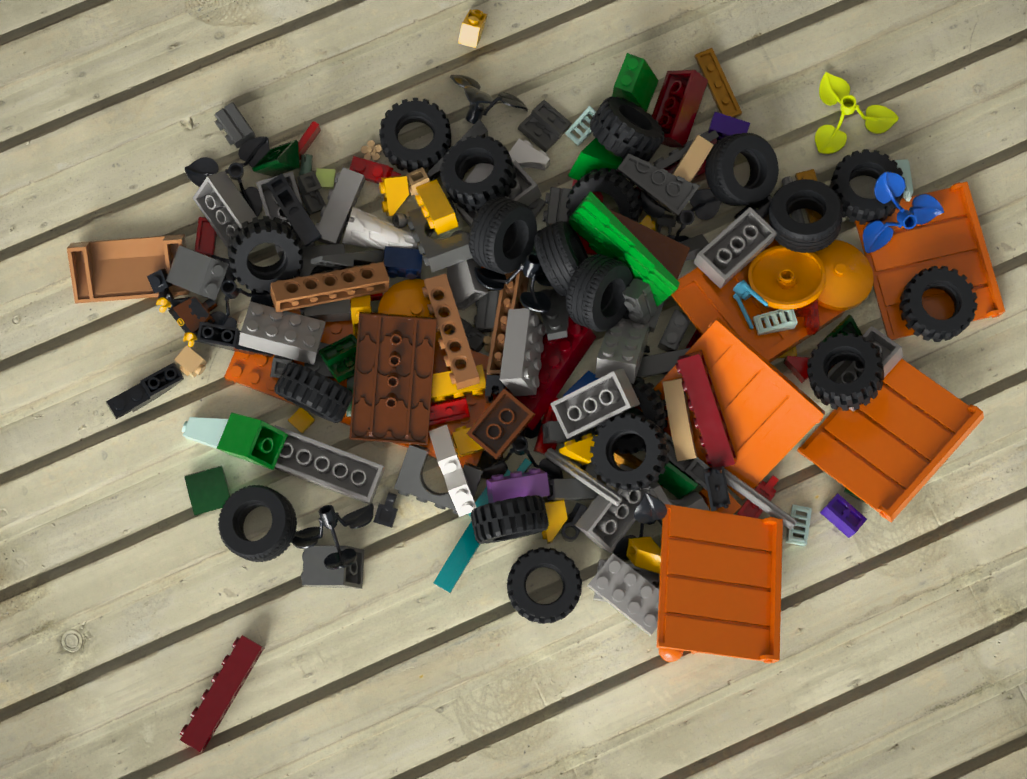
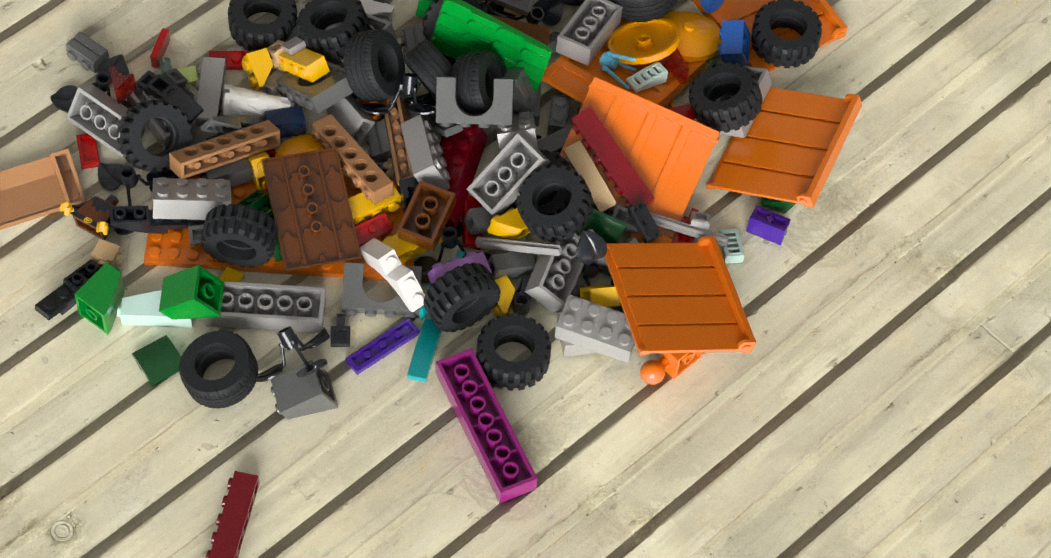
camera: 20 degrees left, 20 degrees down
(159, 284) = (55, 195): black plate -> none
(171, 411) = (100, 297): none -> green slope
(197, 272) = (92, 172): dark grey slope -> none
(251, 182) = (122, 85): none -> clear red slope
(279, 160) = (142, 63): dark green slope -> none
(371, 151) = (224, 43): tan plant -> none
(423, 536) = (382, 346): none -> dark purple tile
(432, 183) = (293, 45): none -> light grey tile
(492, 656) = (486, 425): none -> magenta brick
(559, 321) = (450, 112): none -> arch
(775, 494) = (700, 220): none -> light grey tile
(879, 302) = (734, 42): none -> blue brick

